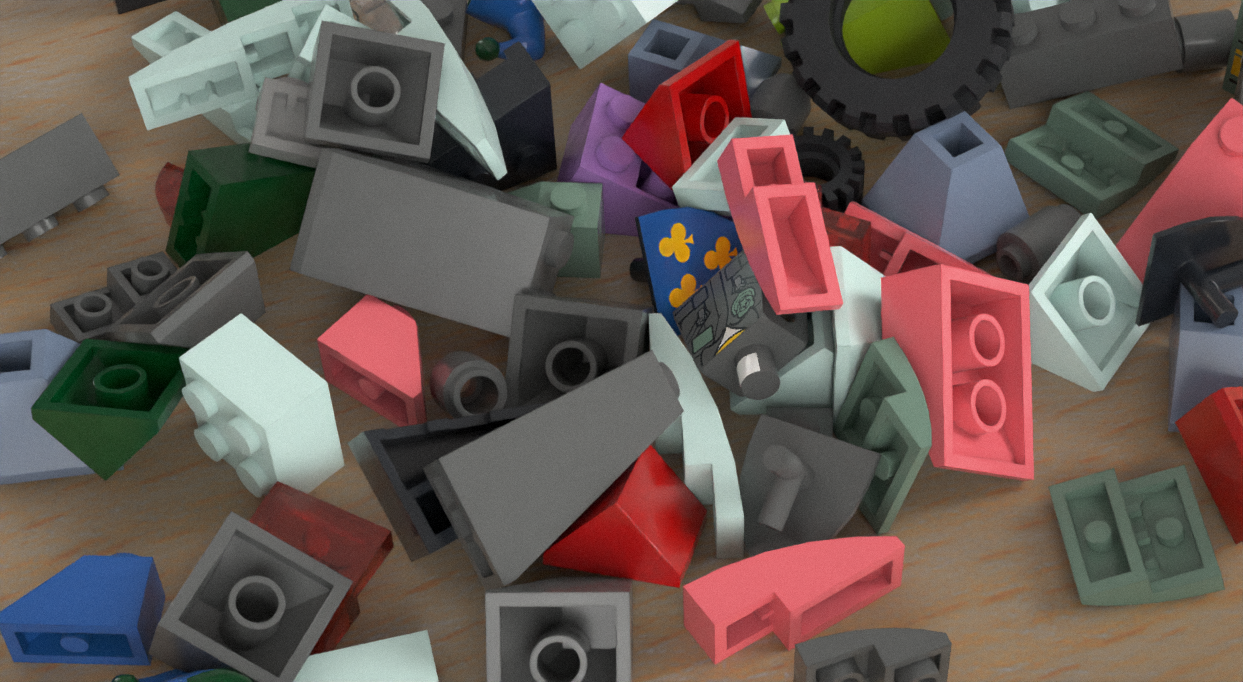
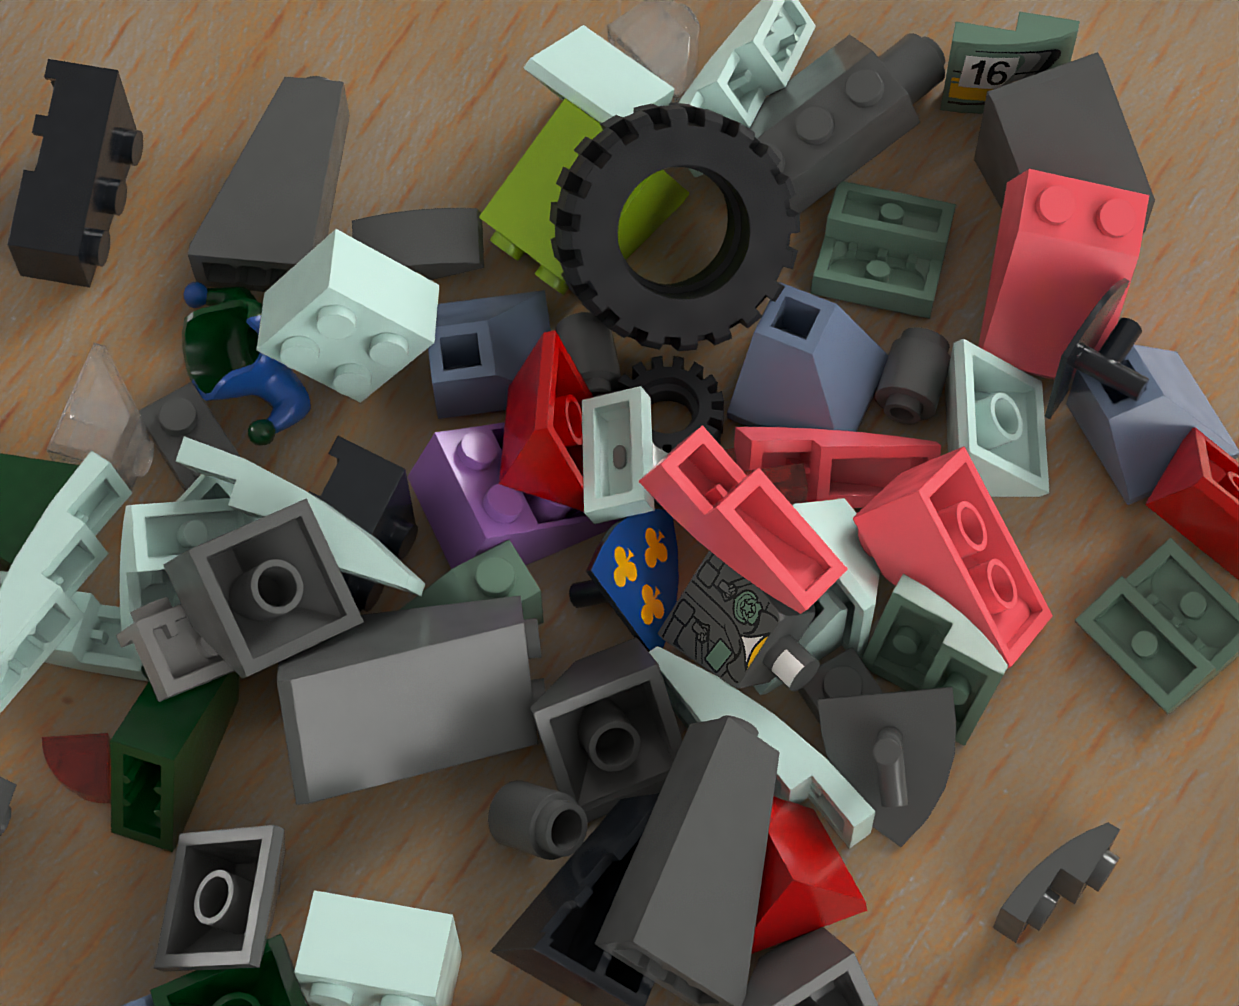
camera: 35 degrees left, 15 degrees up
(95, 311) = (123, 920): dark grey slope -> none
(377, 360) = (432, 837): coral slope -> none
(789, 592) = (944, 855): coral slope -> none

